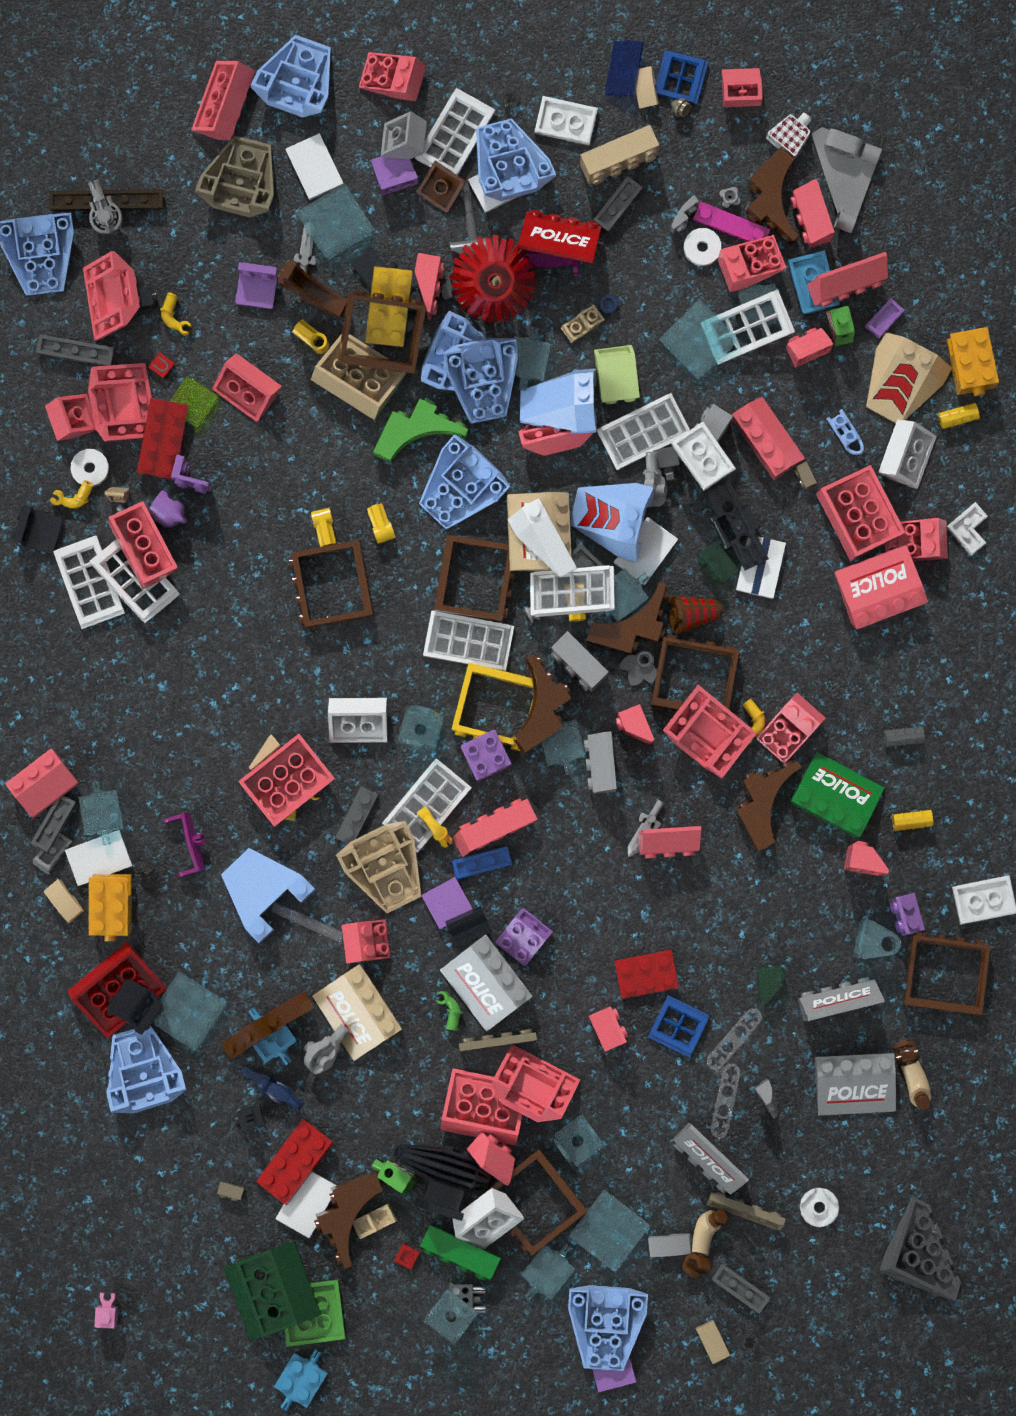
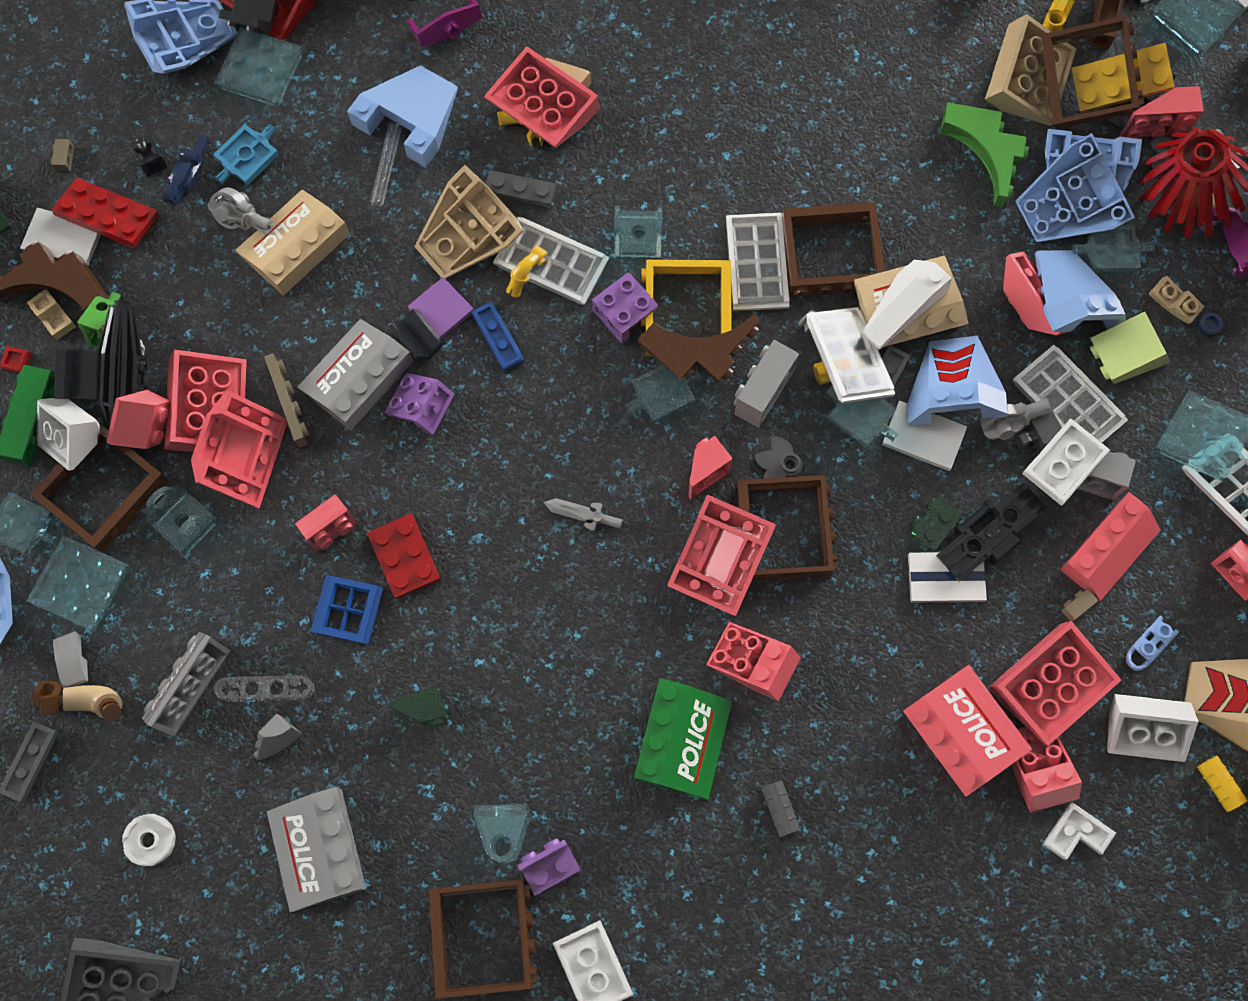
camera: 75 degrees right, 10 degrees down
(267, 1025) = (258, 144): reddish brown arch -> none
(301, 598) = (792, 130): reddish brown window -> none
(323, 523) = (849, 74): yellow piece -> none
(357, 720) = (631, 161): white slope -> none
(365, 941) = (375, 229): coral slope -> none
(381, 526) = (861, 138): yellow piece -> none
(454, 1011) = (313, 344): bright green piece -> none
(461, 484) = (942, 207): light blue wedge -> none
(494, 827) = (542, 335): coral wedge -> none
(600, 763) = (650, 440): light grey slope -> none
(643, 625) = (833, 450): reddish brown arch -> none
(669, 841) = (572, 541): coral slope -> none
(692, 612) = (865, 505): reddish brown cone -> none
(736, 1041) = (344, 680): clear beam -> none
(745, 1211) = (126, 756): dark tan plate -> none
(757, 717) = (755, 616): yellow piece -> none
(762, 791) = (664, 643): reddish brown arch -> none
(839, 1000) = (415, 800): light grey slope -> none
(864, 860) = (605, 787): coral slope -> none
(912, 820) = (674, 845): yellow axle -> none
(915, 1077) = (335, 929): piece -> none

